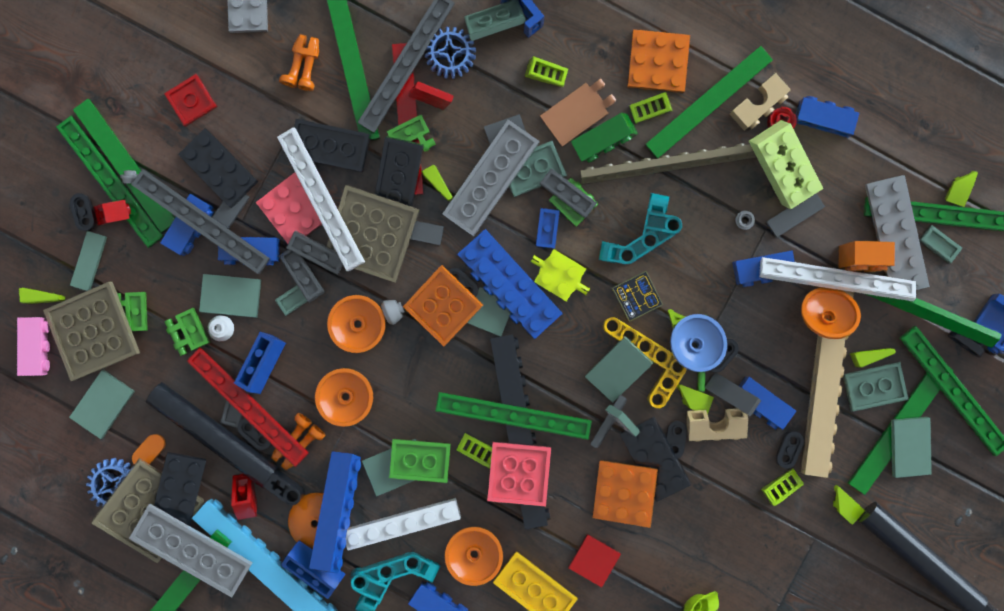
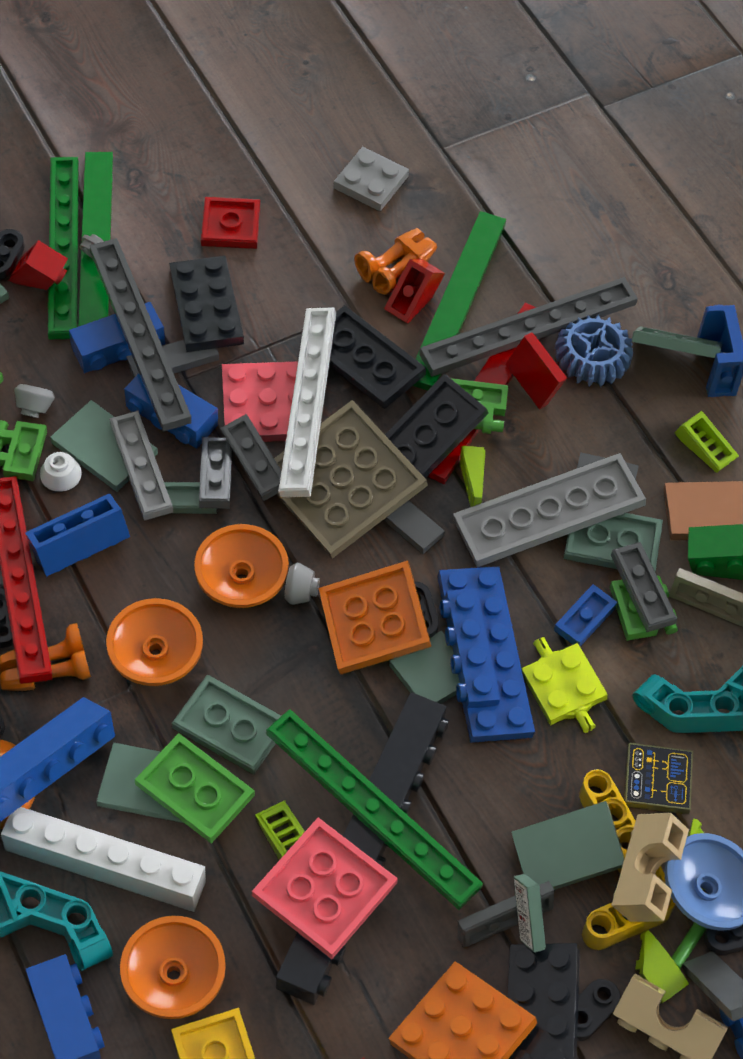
camera: 30 degrees right, 30 degrees down
(172, 295) = (33, 399): none -> light grey cone
(260, 297) = (141, 465): none -> light grey tile
(325, 78) = (414, 289): none -> red slope
(409, 410) = (227, 724): none -> sand green tile
(667, 376) = (639, 891): none -> tan arch

